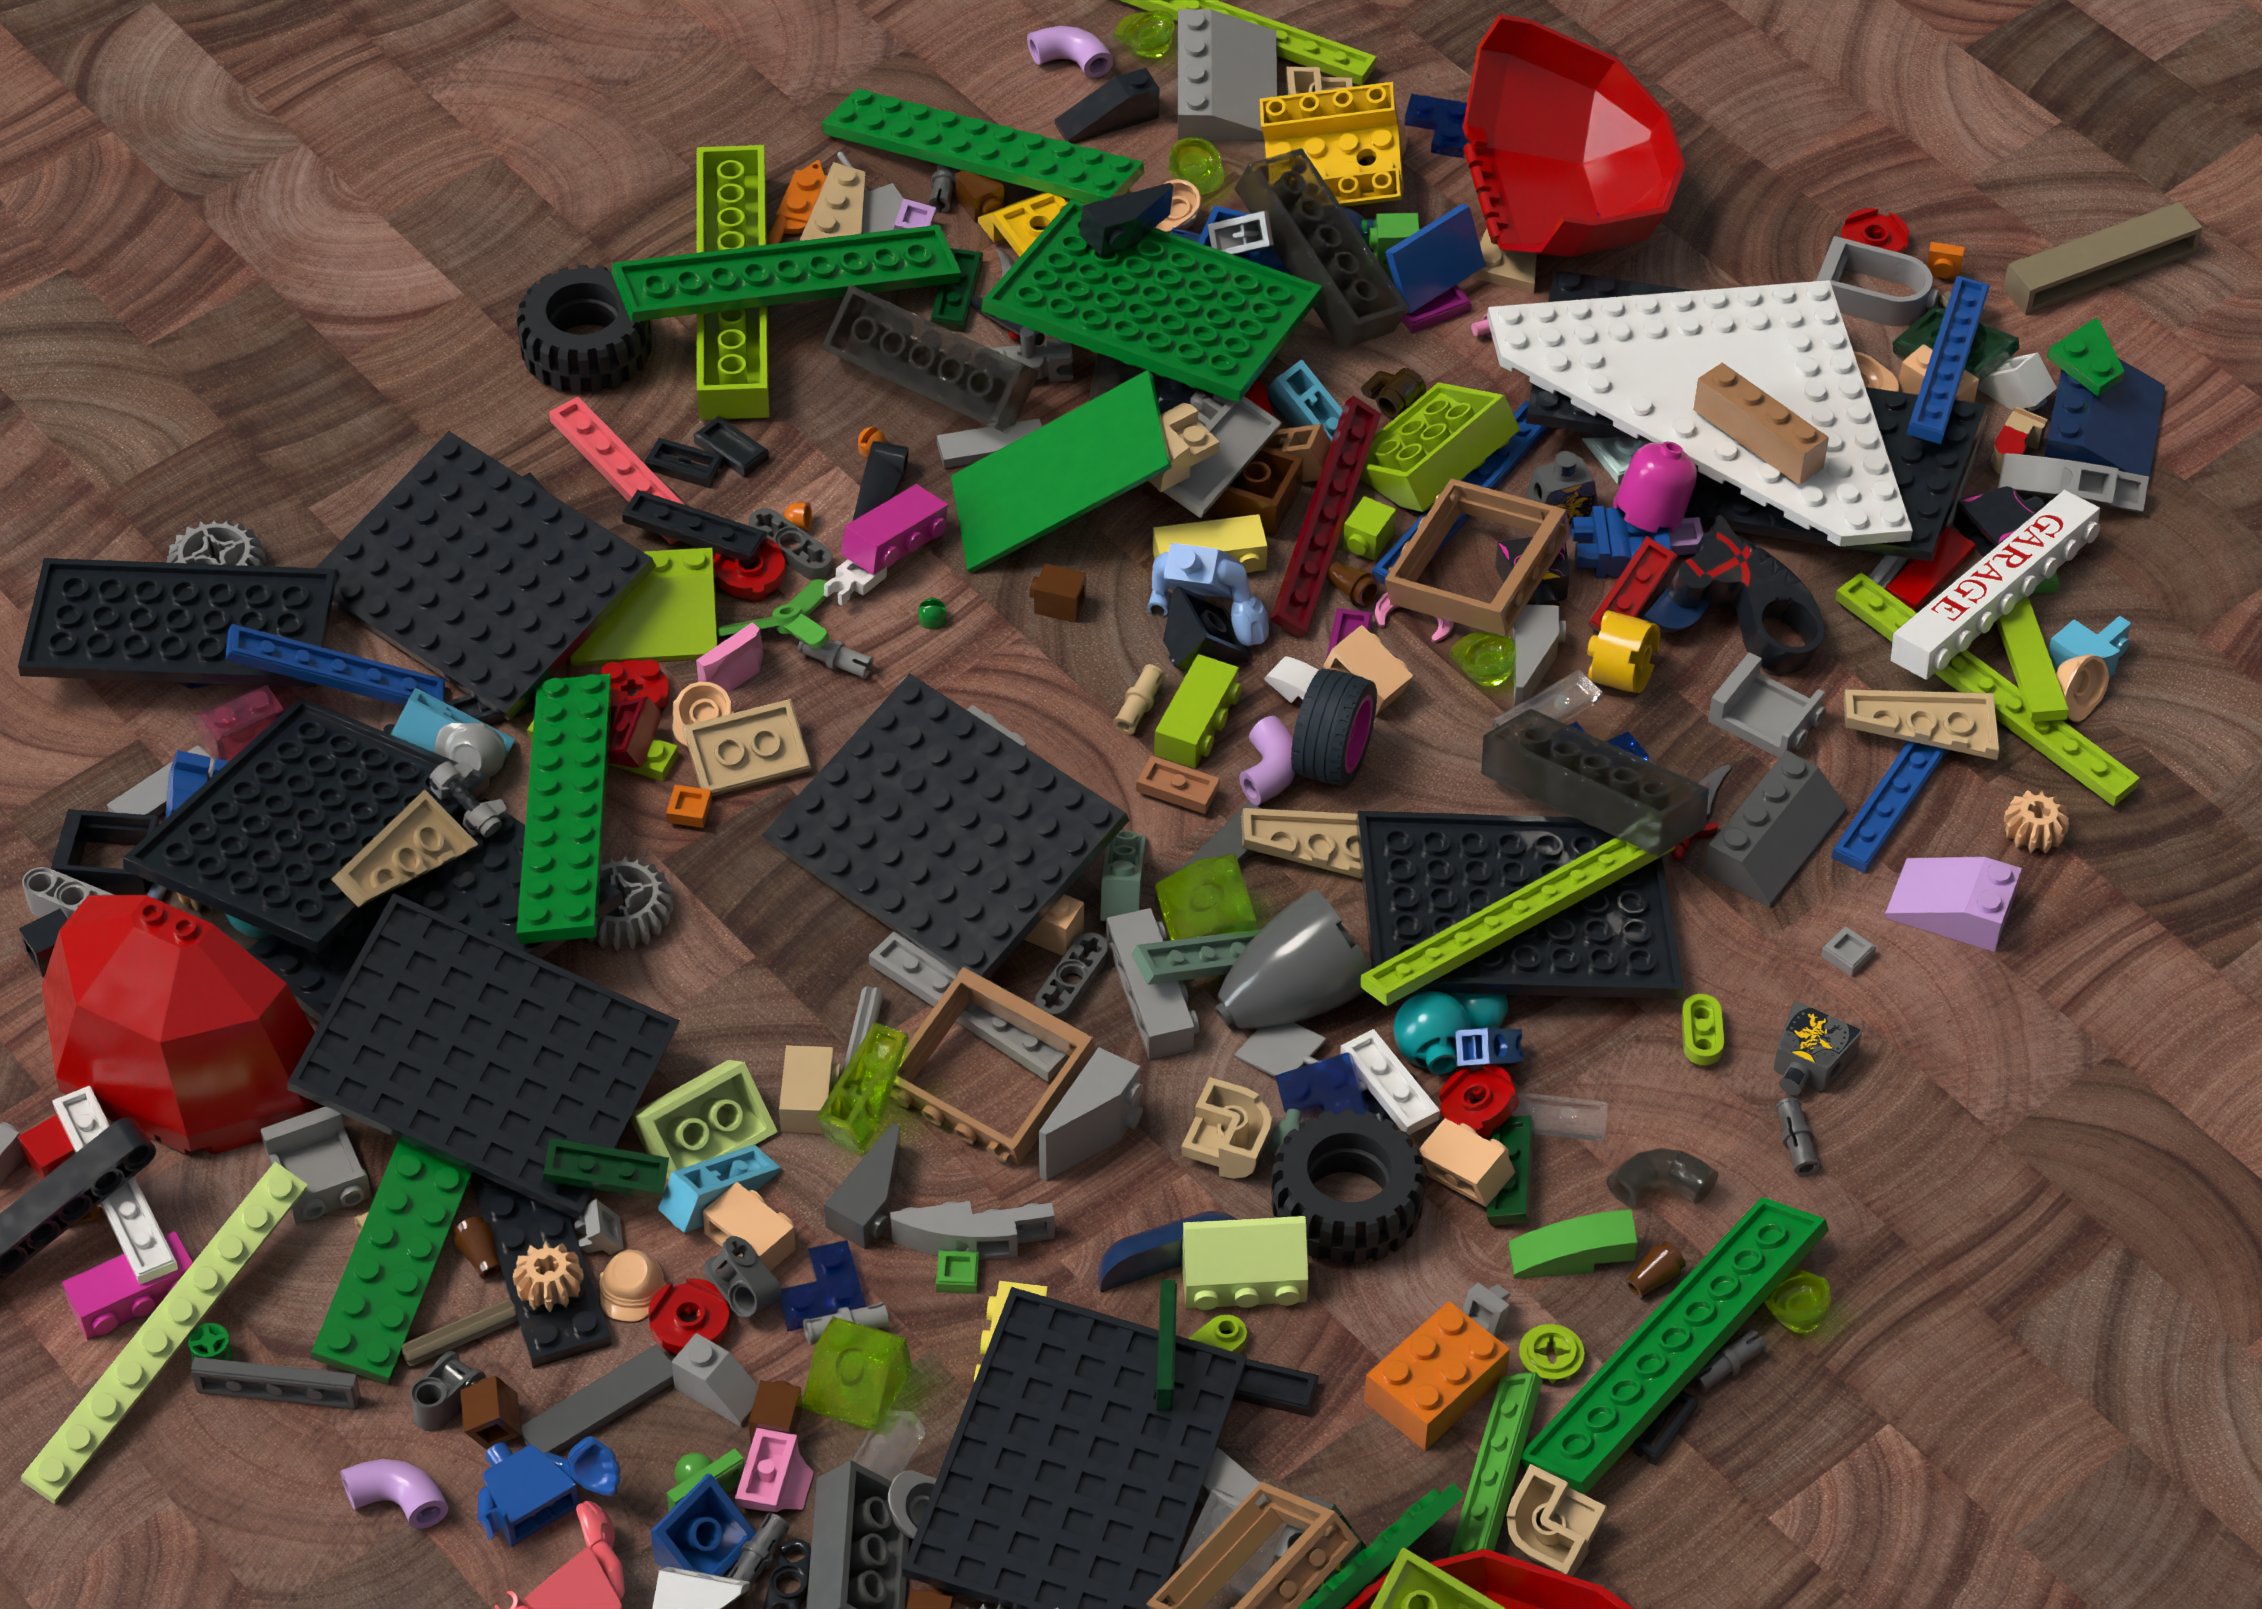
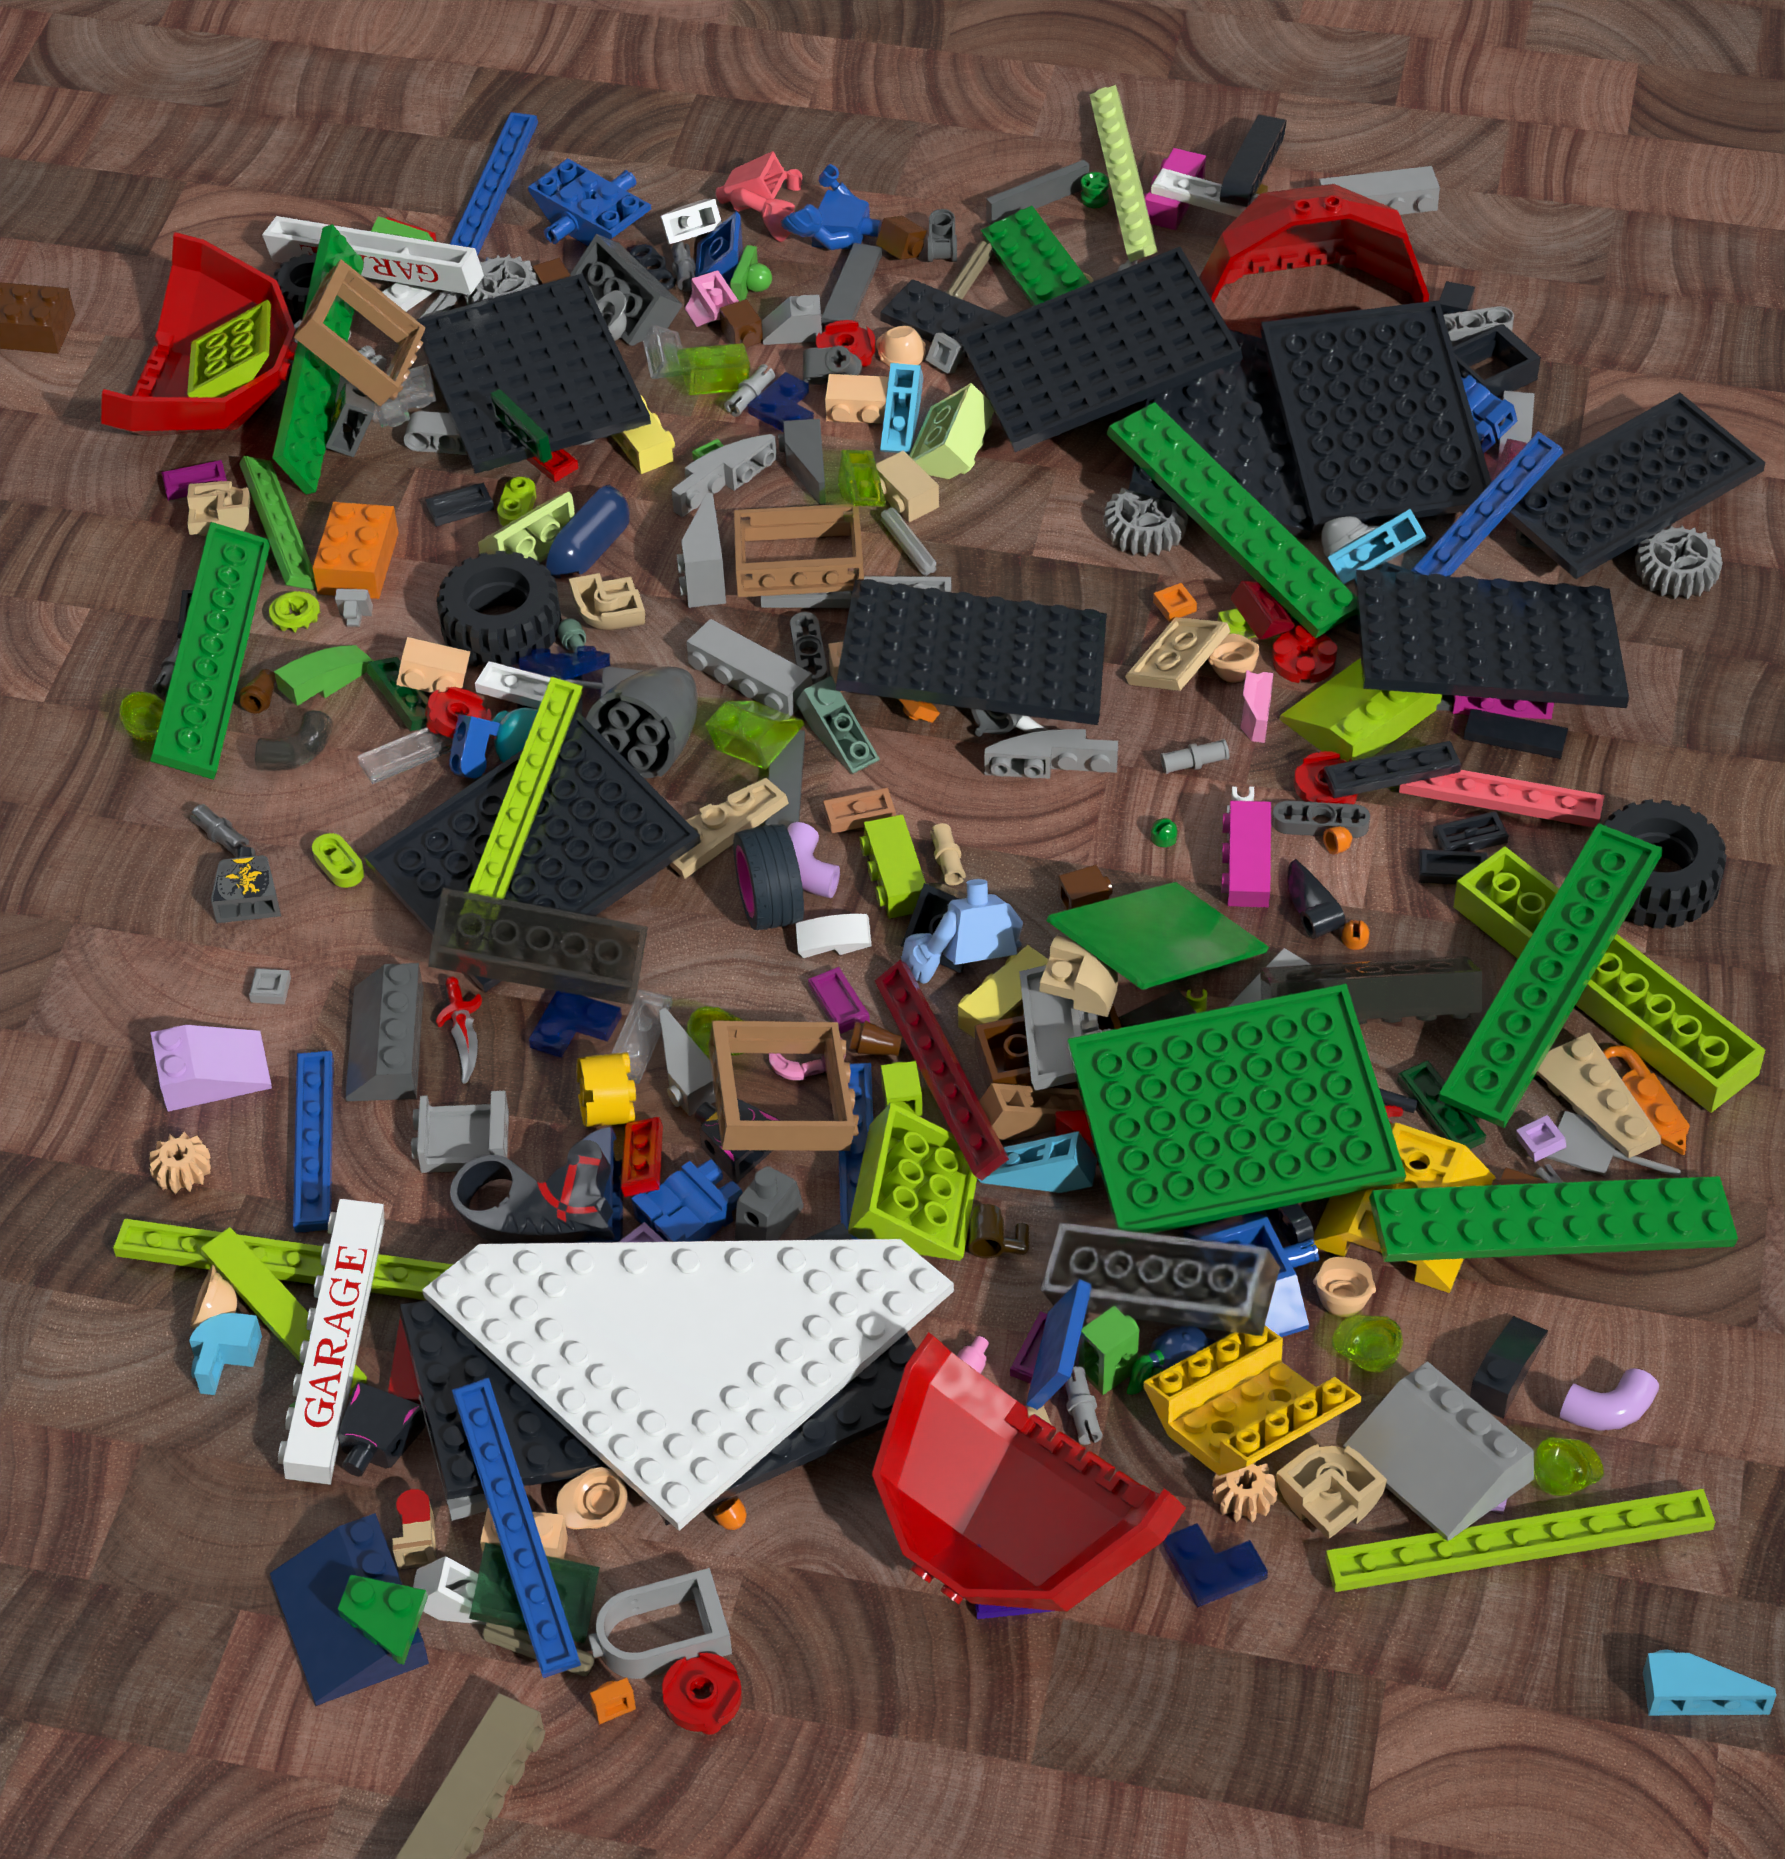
camera: 145 degrees right, 0 degrees up
(398, 1483) = (914, 190): lavender cylinder -> none
(404, 850) = (1287, 412): tan wing -> none
(477, 1244) = (1006, 306): reddish brown cone -> none
(479, 817) = (1282, 486): light grey piece -> none
(548, 1276) = (939, 296): light nougat gear -> none
(605, 1169) = (963, 349): dark green plate -> none
(793, 617) = (1253, 753): bright green piece -> none
(1124, 219) = (1325, 1151): black slope -> none
(1190, 957) = (722, 677): sand green plate -> none
(1242, 234) = (1224, 1226): light grey slope -> none
(1366, 657) = (793, 961): light nougat brick -> none
(1657, 487) = (678, 1215): dark pink cylinder -> none
(1761, 423) = (613, 1276): medium nougat brick -> none
(1930, 718) = (307, 1194): tan wing -> none
(2091, 482) = (343, 1495): light grey slope -> none

